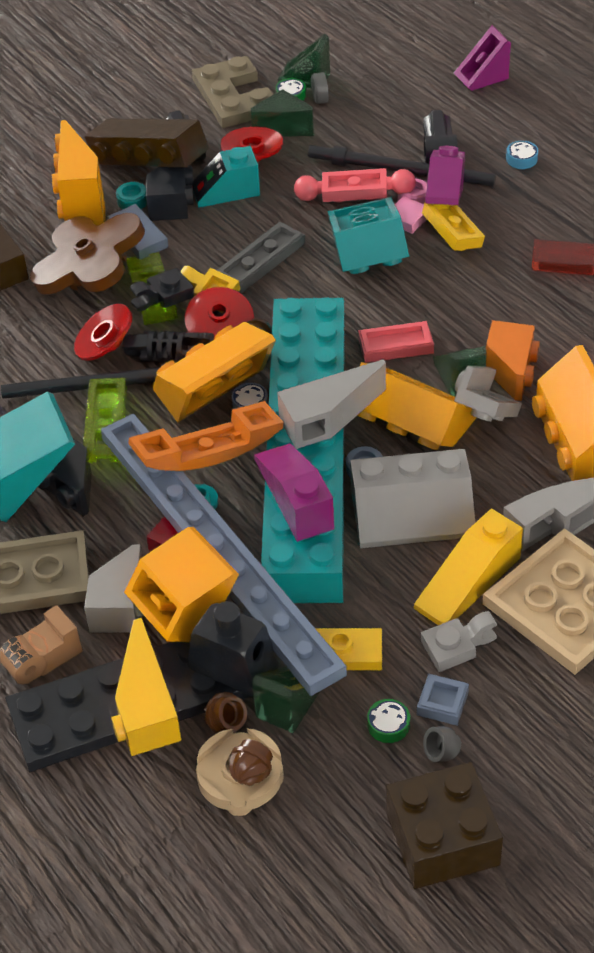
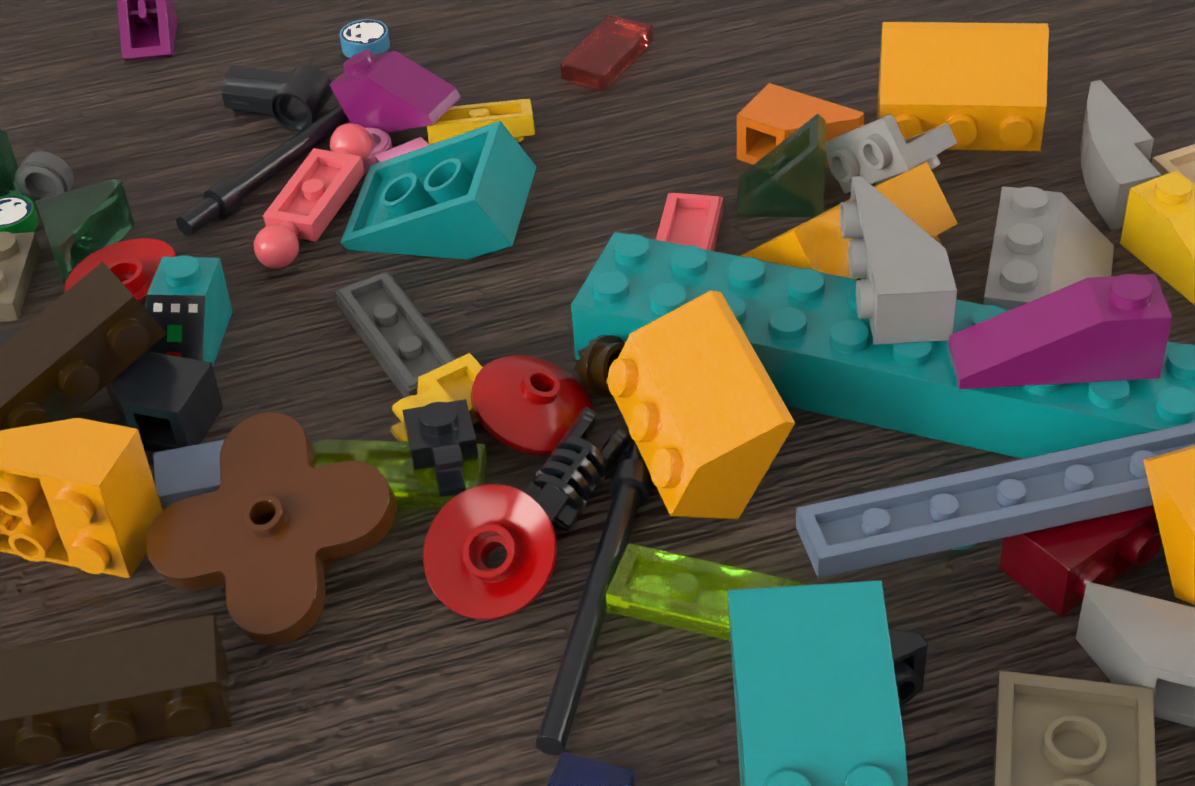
camera: 70 degrees left, 5 degrees down
(207, 447) = (907, 419): orange slope -> none

